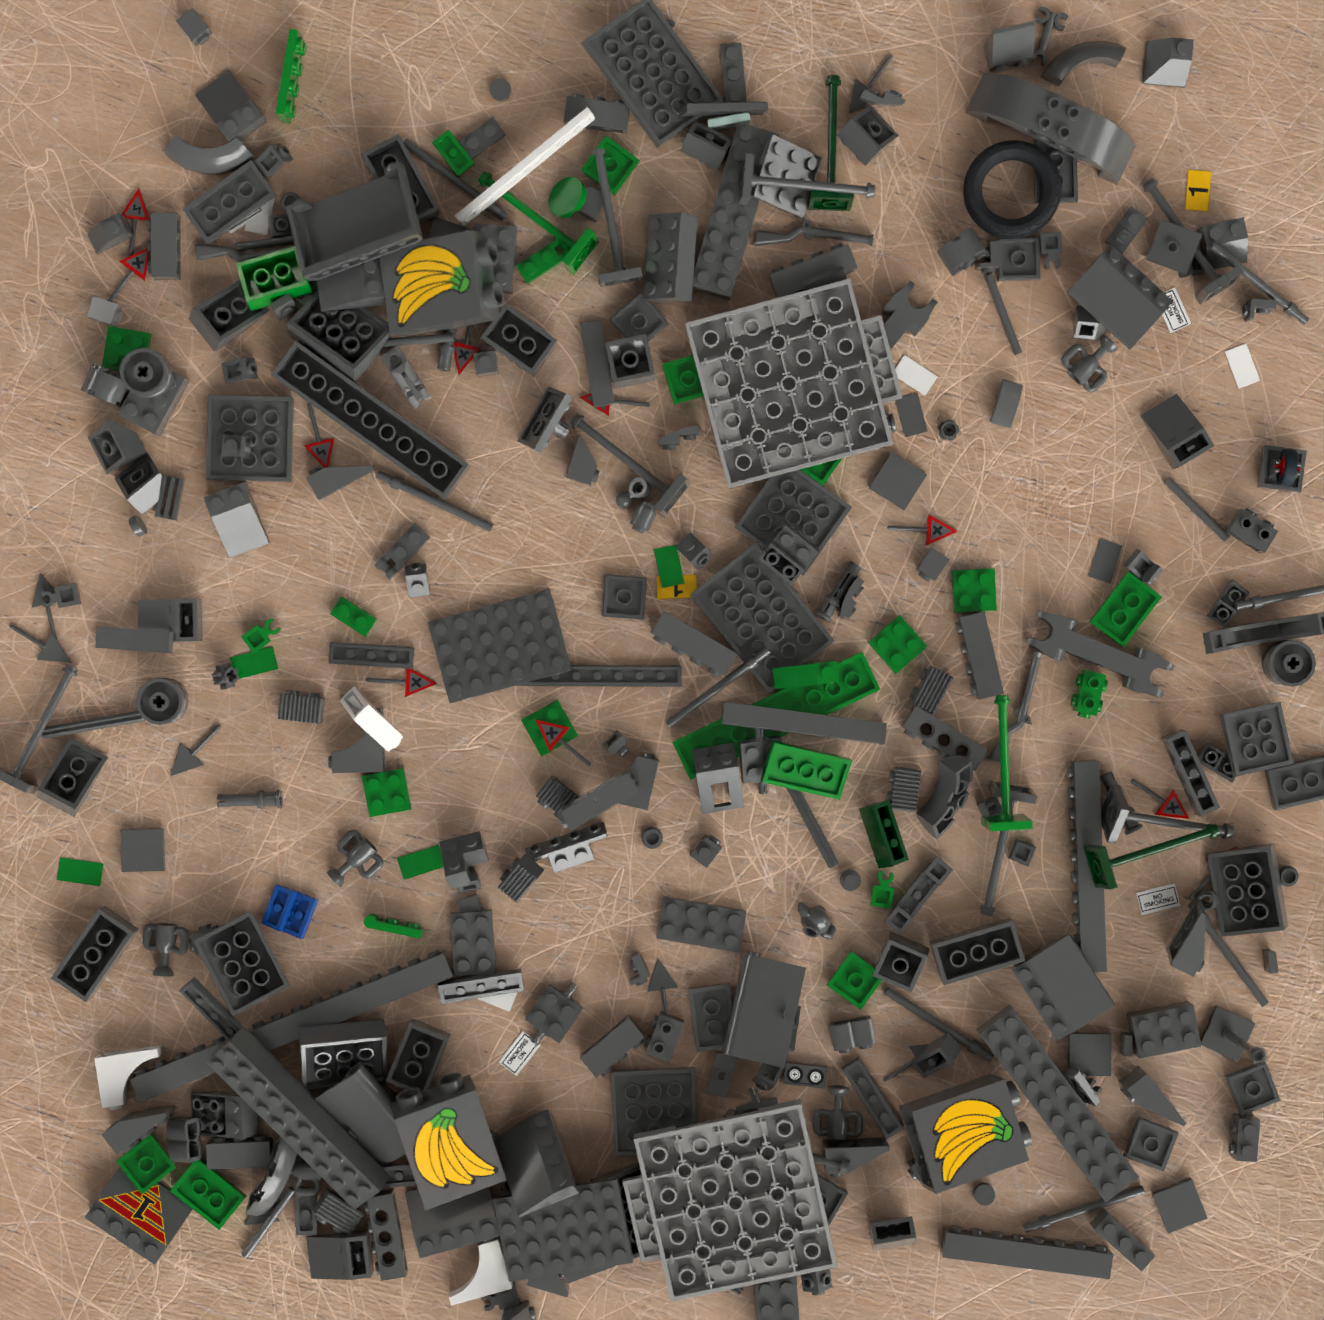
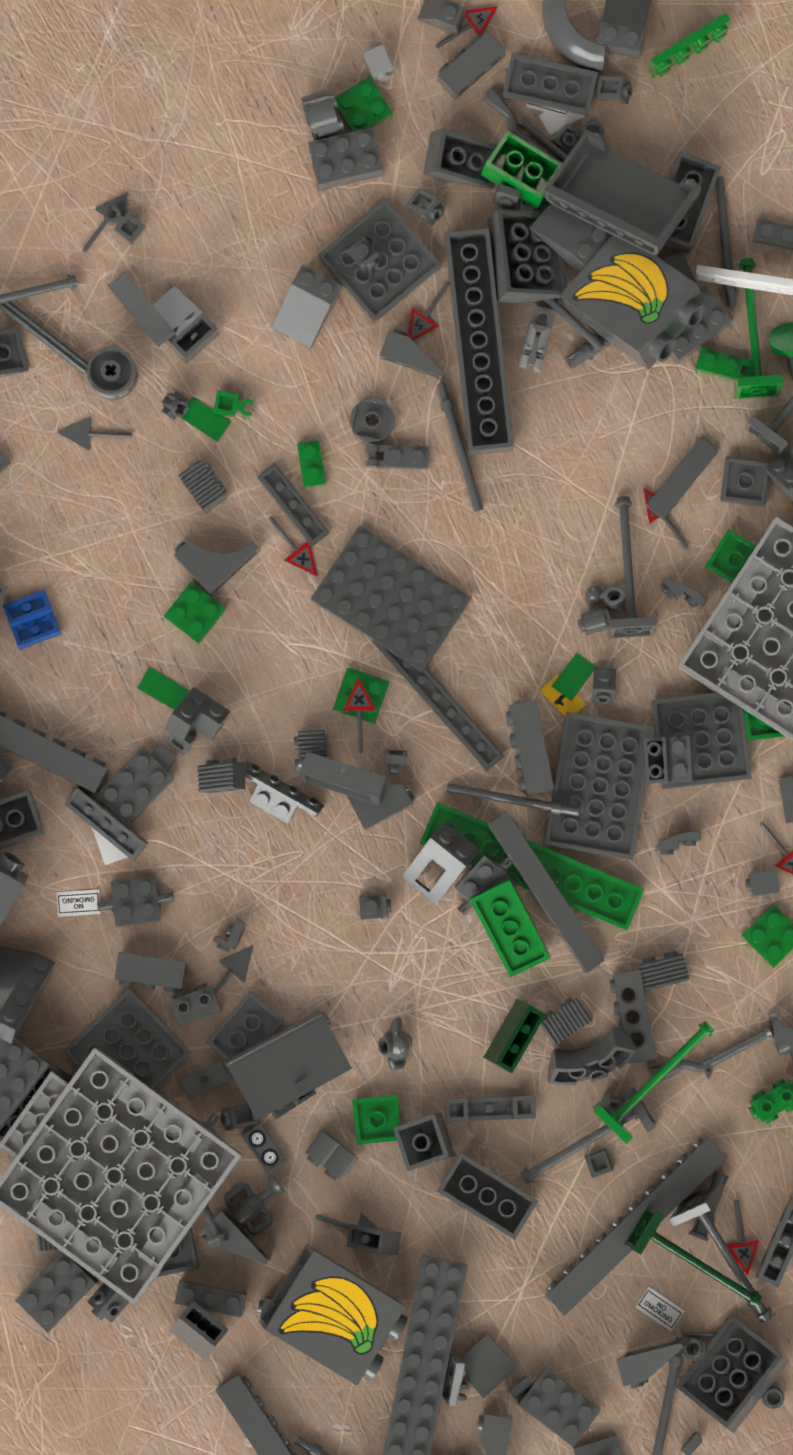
camera: 50 degrees right, 5 degrees down
(51, 650) = (76, 252): dark grey piece -> none
(116, 446) = (280, 163): dark grey slope -> none
(134, 368) = (362, 123): dark grey wheel -> none
(136, 264) = (436, 56): piece -> none
(137, 525) = (233, 234): dark grey tile -> none
(141, 483) = (269, 208): dark grey slope -> none
(165, 479) = (293, 230): dark grey tile -> none
(260, 799) = (101, 518): dark grey pin -> none
(356, 857) = (124, 634): dark grey piece -> none
(363, 534) = (364, 410): none -> dark grey plate
(371, 719) = (243, 548): white arch -> none
(393, 926) = (93, 711): green plate -> none
(417, 580) = (385, 488): bracket -> none
(453, 153) = (744, 222): green plate -> none
(464, 352) = (597, 367): piece -> none
(486, 363) = (603, 391): dark grey brick -> none
(519, 340) = (645, 401): dark grey brick -> none
(546, 420) = (602, 478): dark grey plate -> none
(582, 465) = (591, 538): dark grey slope -> none
(624, 597) = (518, 662): dark grey tile -> none
(630, 361) = (707, 501): dark grey slope -> none
(652, 838) = (345, 855): dark grey tile -> none
(701, 924) = (311, 956): dark grey plate -> none
(805, 675) = (585, 859): green slope -> none
(813, 827) = (469, 975): dark grey axle -> none
(832, 602) = (663, 830): dark grey pin -> none
(850, 880) = (453, 1043): dark grey plate -> none
(872, 1098) = (293, 1220): dark grey tile -> none
(876, 1204) = (211, 1298): none -> dark grey brick
(882, 894) = (465, 1080): green plate -> none
(897, 644) = (675, 913): green plate -> none
(972, 1045) = (407, 1263): dark grey bar -> none
(980, 655) = (726, 986): dark grey brick -> none
(984, 1194) = (295, 1381): dark grey tile -> none
(1063, 986) = (521, 1290): dark grey slope -> none

